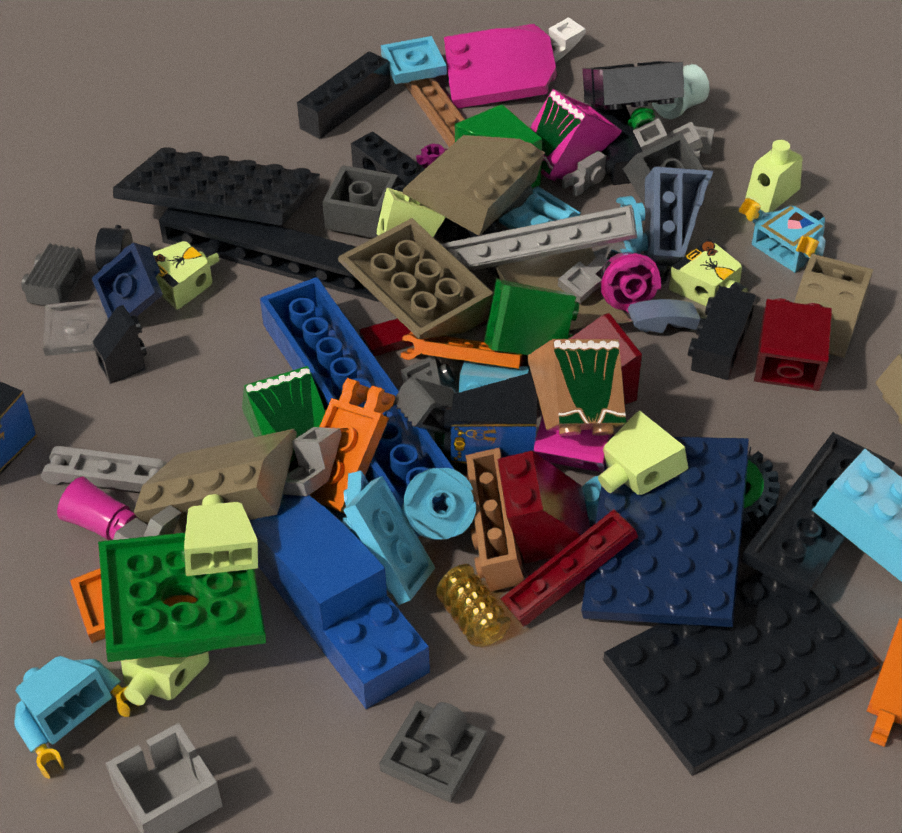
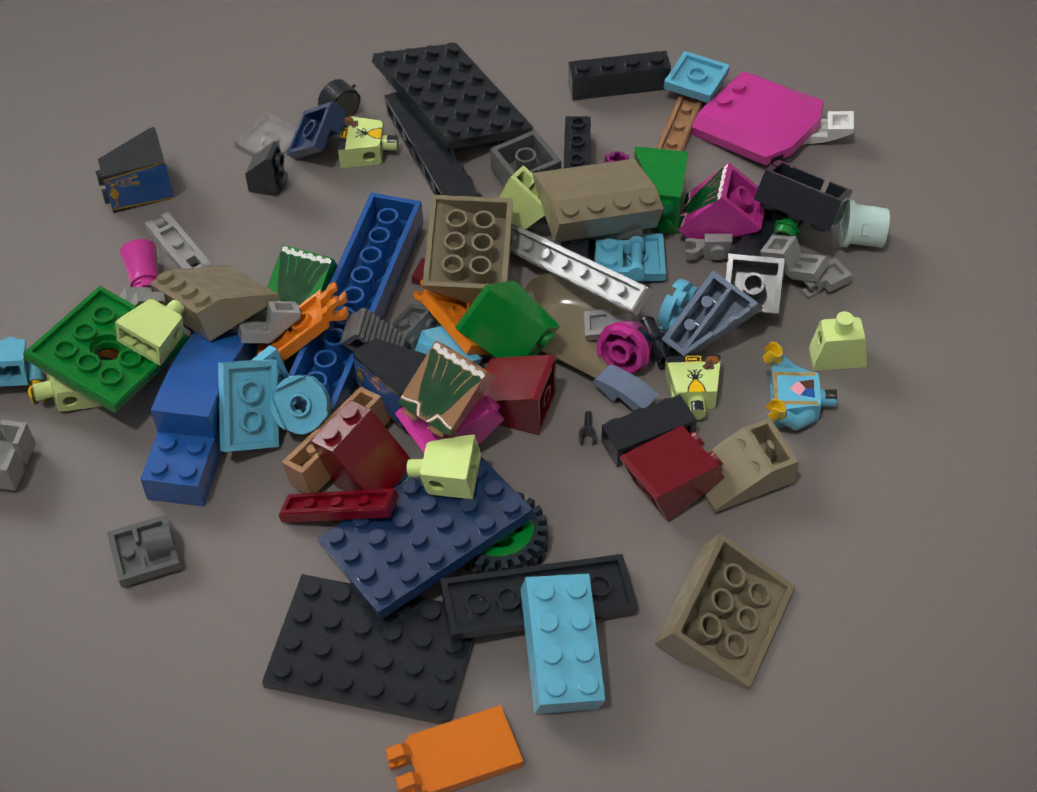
camera: 45 degrees right, 5 degrees up
(54, 275) = (291, 95): dark grey brick -> none
(472, 606) = (261, 484): clear yellow piece -> none
(678, 368) = (587, 430): none -> black hand

